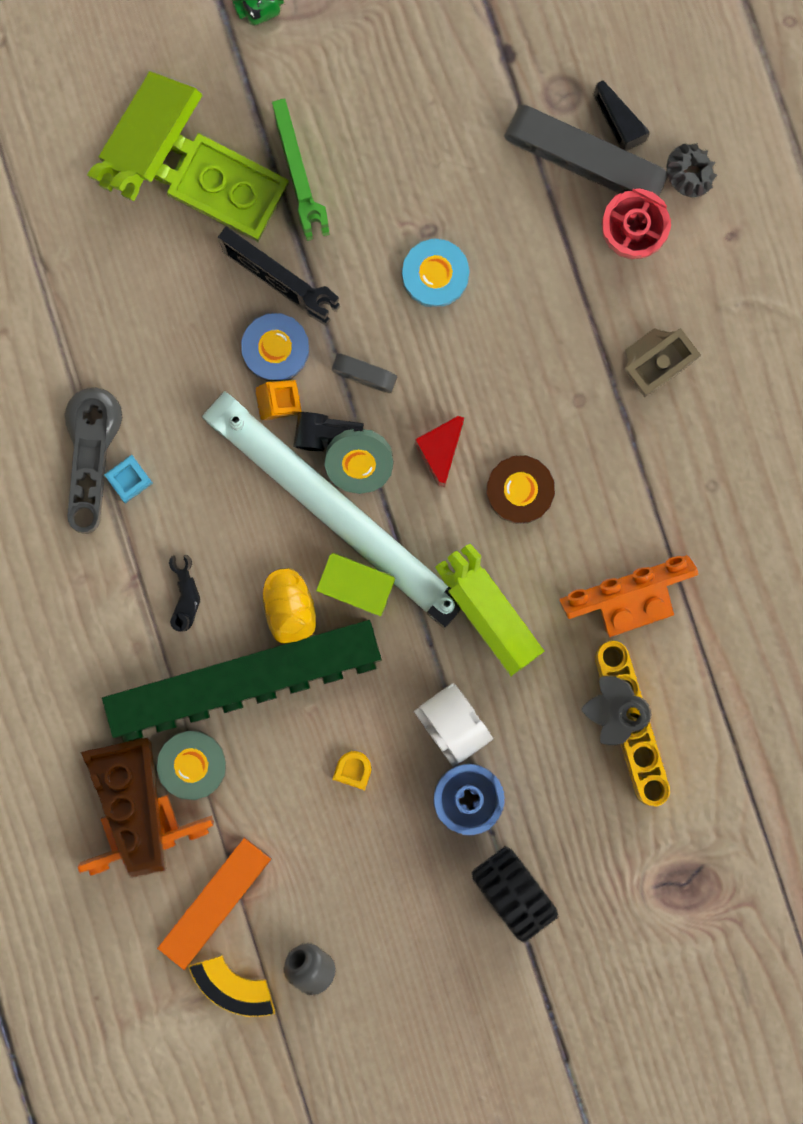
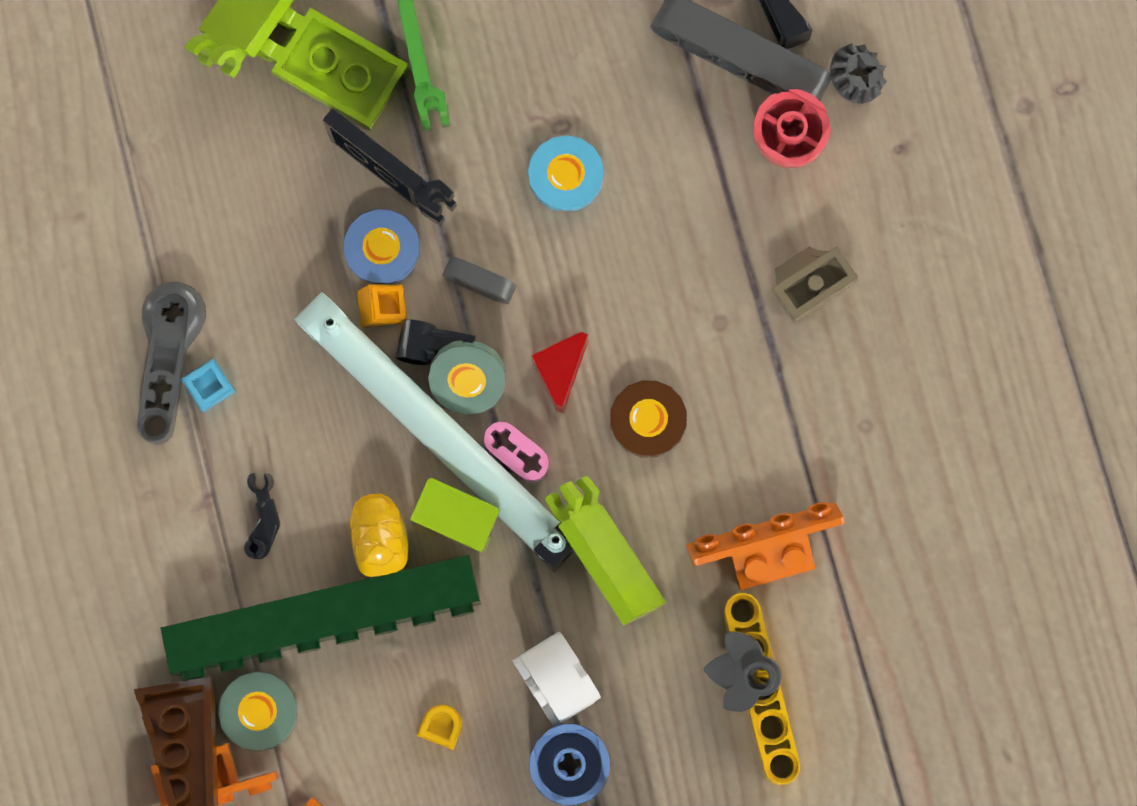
camera: 10 degrees right, 5 degrees down
(401, 532) = (522, 445): none -> bright pink beam

